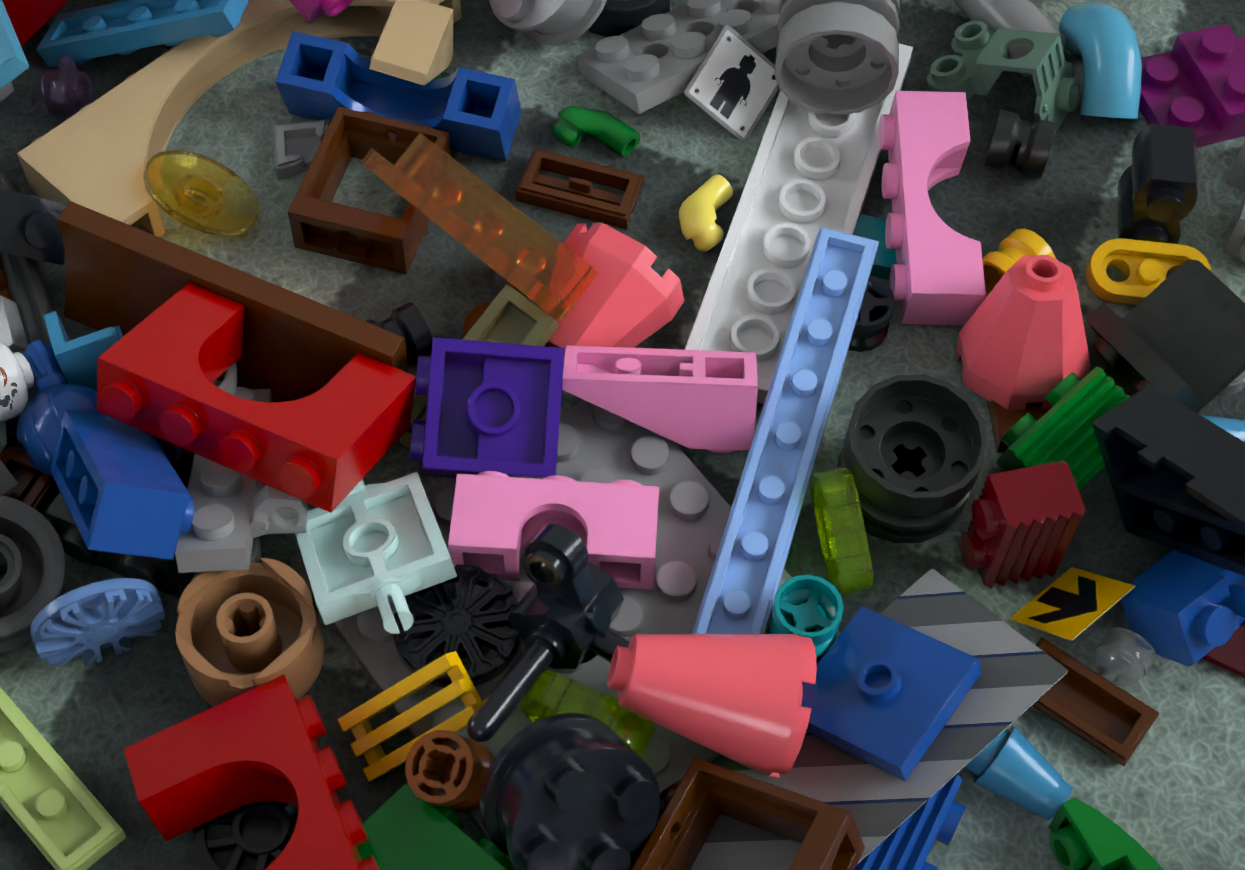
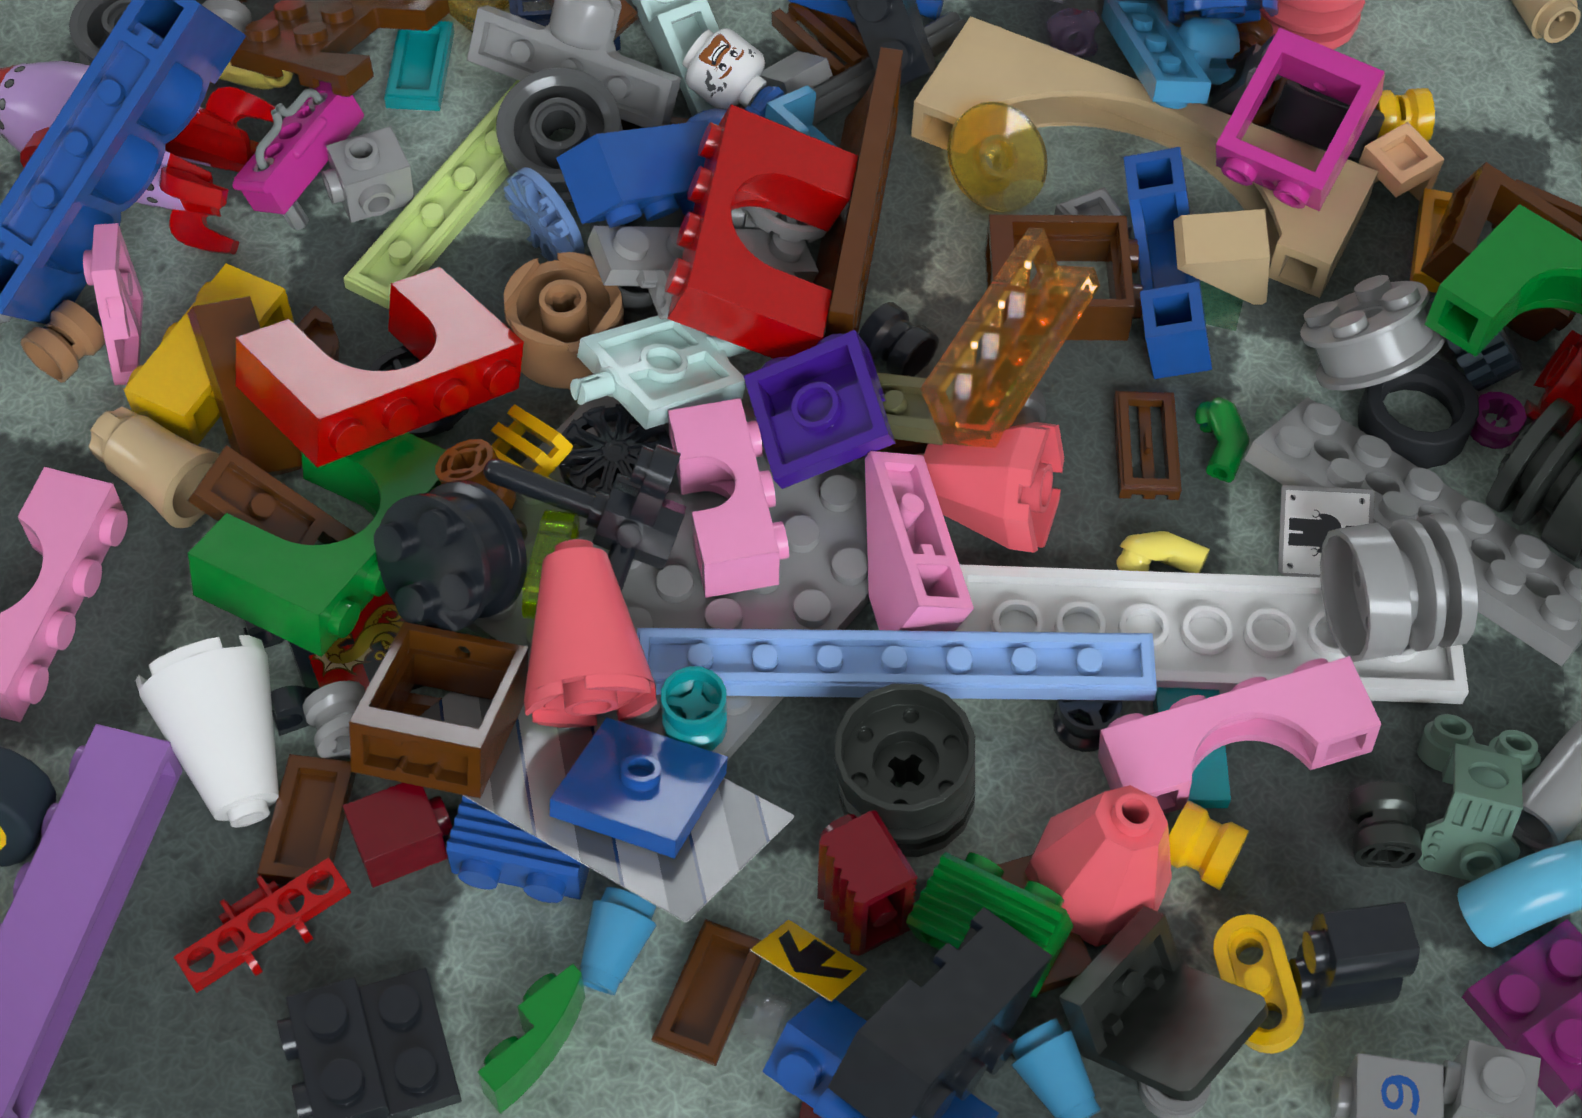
camera: 75 degrees right, 0 degrees up
(841, 530) = (807, 737): clear neon green beam -> none

